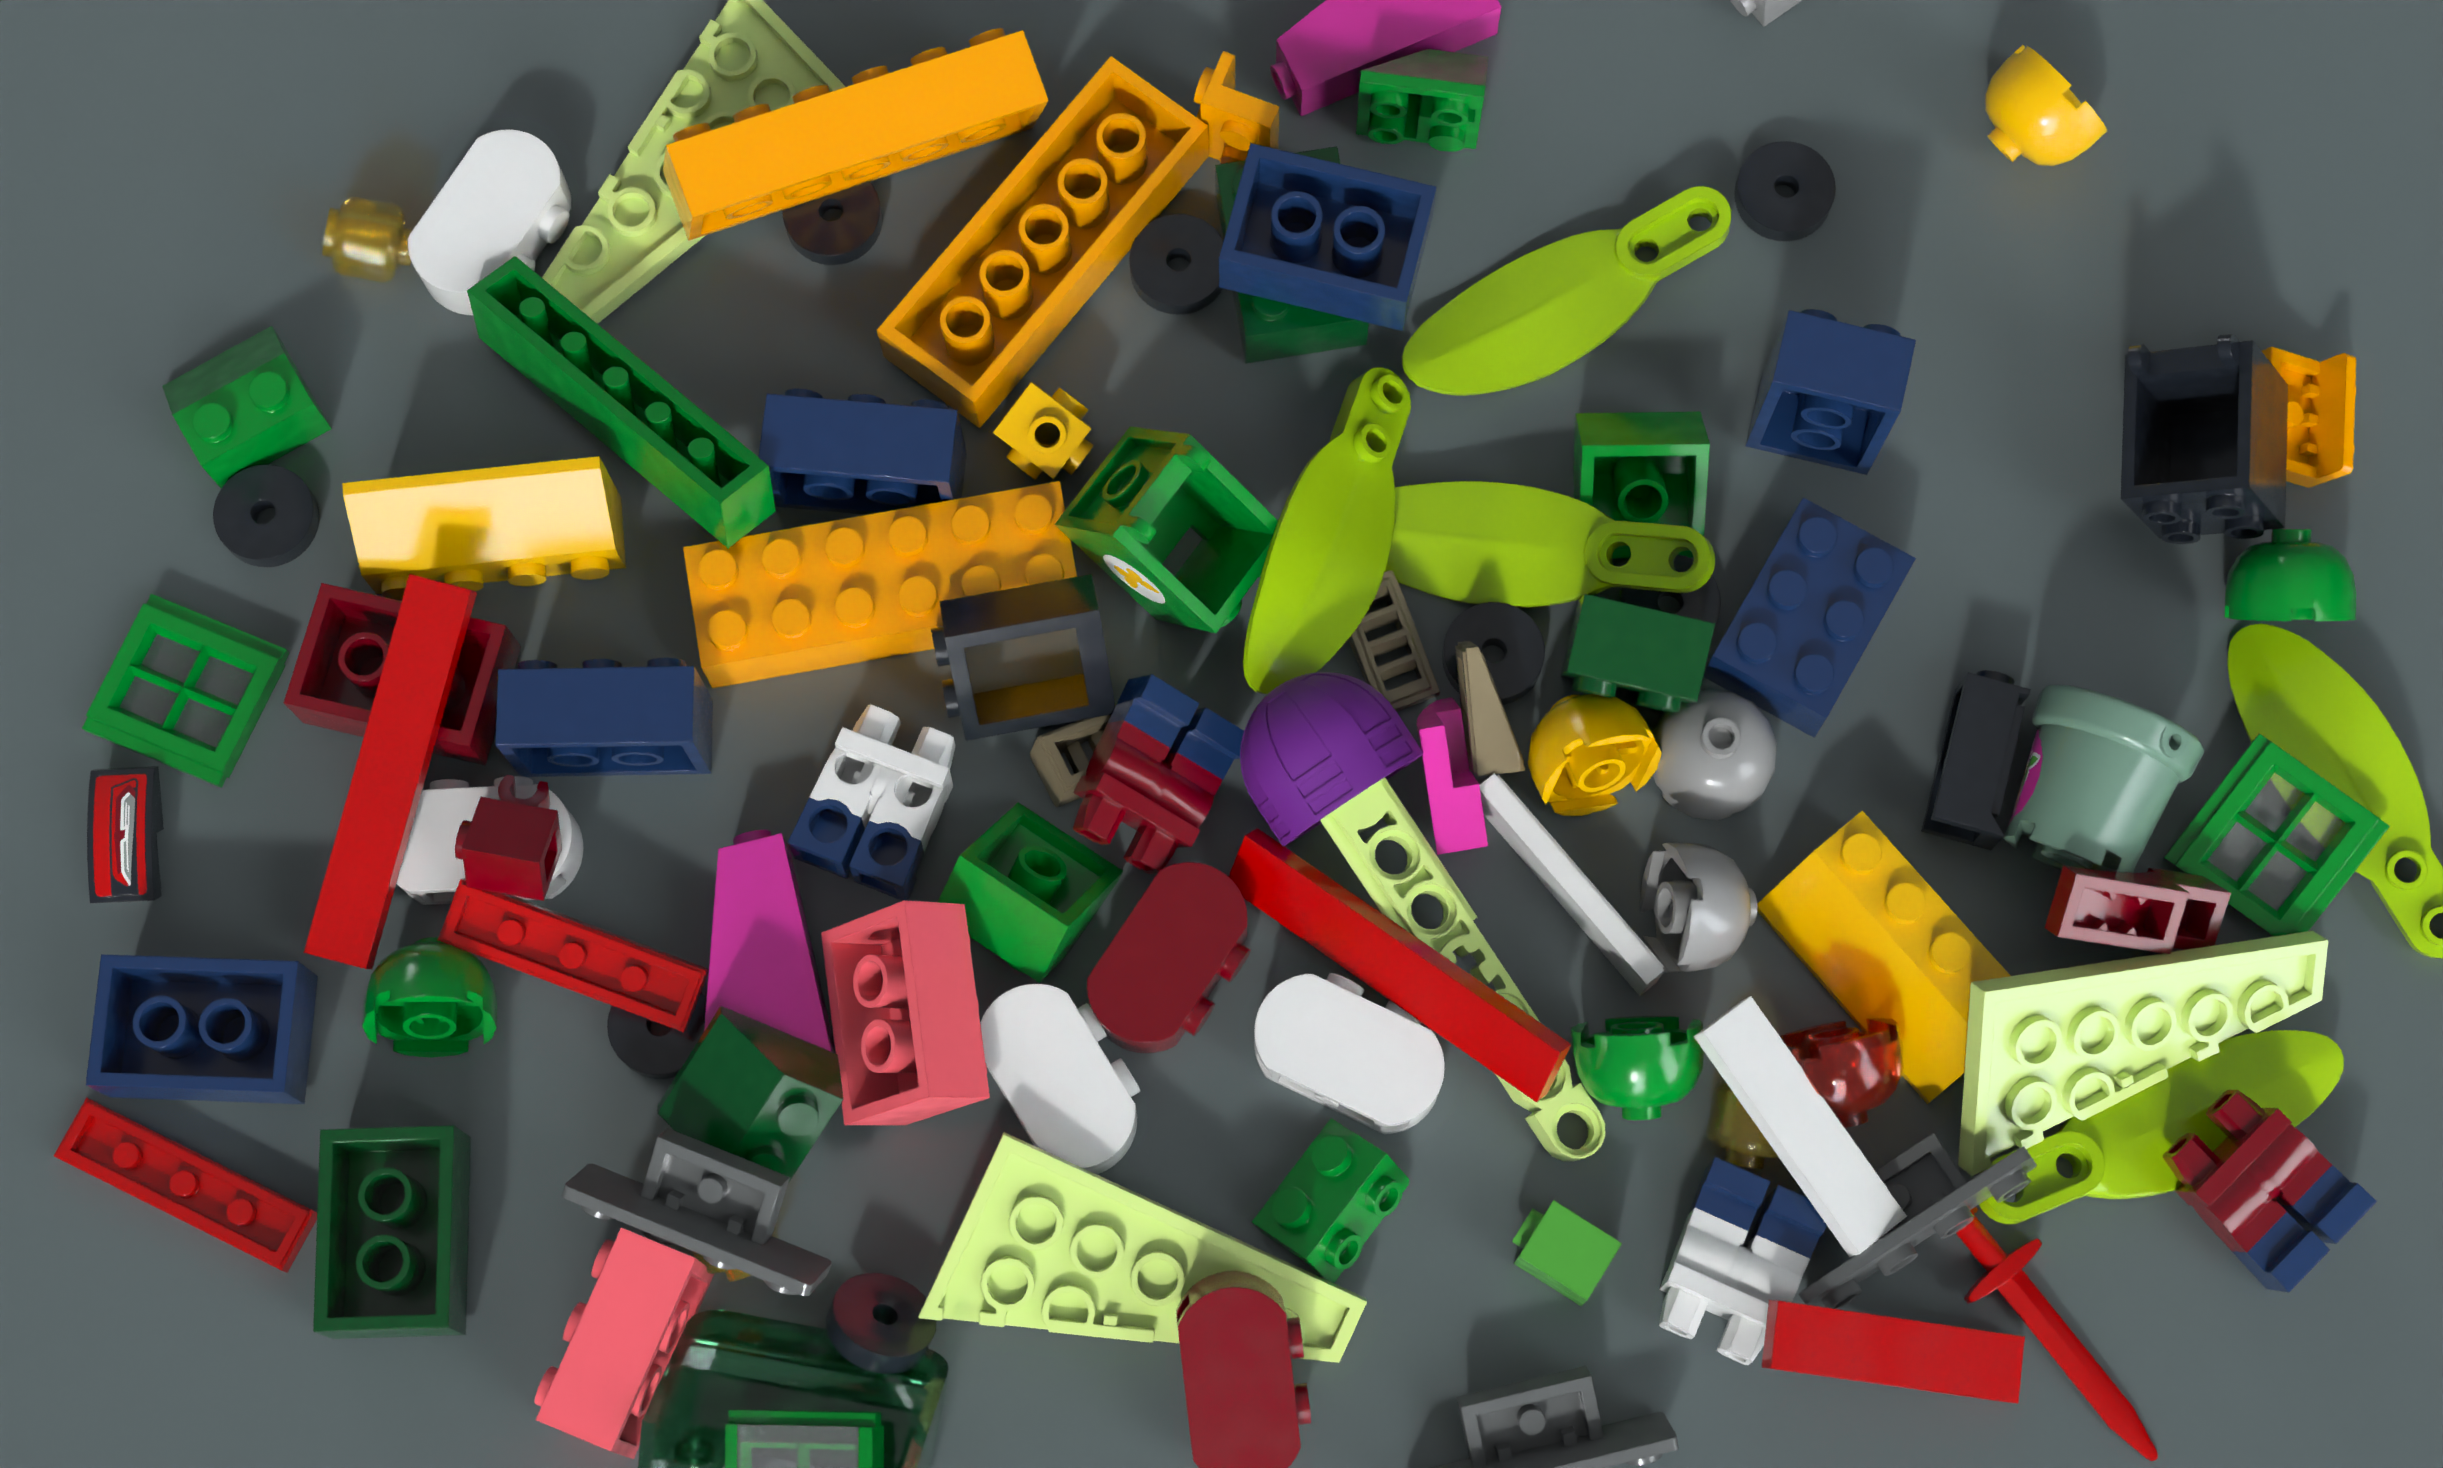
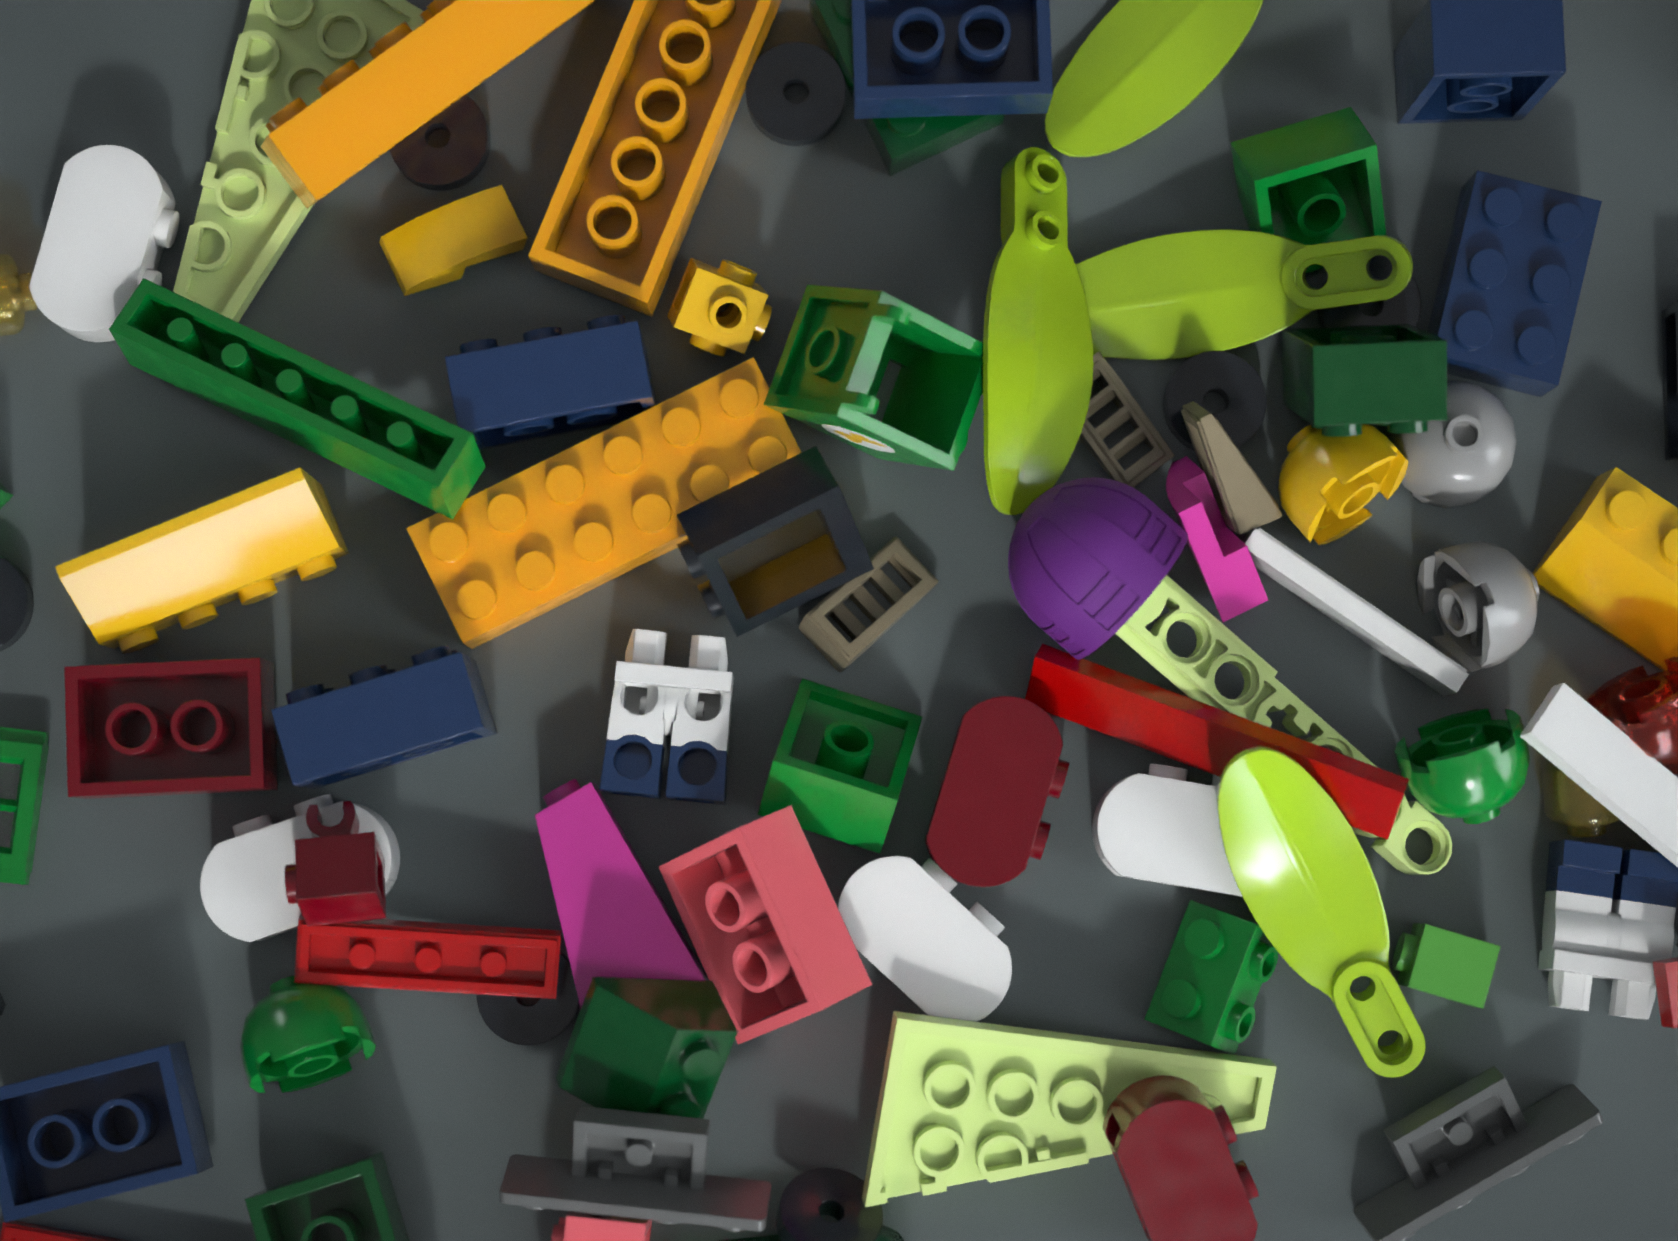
camera: 20 degrees left, 10 degrees up
(390, 772) = (196, 834): red tile -> none
(802, 305) = (452, 237): none -> yellow slope
(1155, 772) = (930, 617): dark red hips -> none
(1449, 1138) = (1316, 898): none -> lime plant

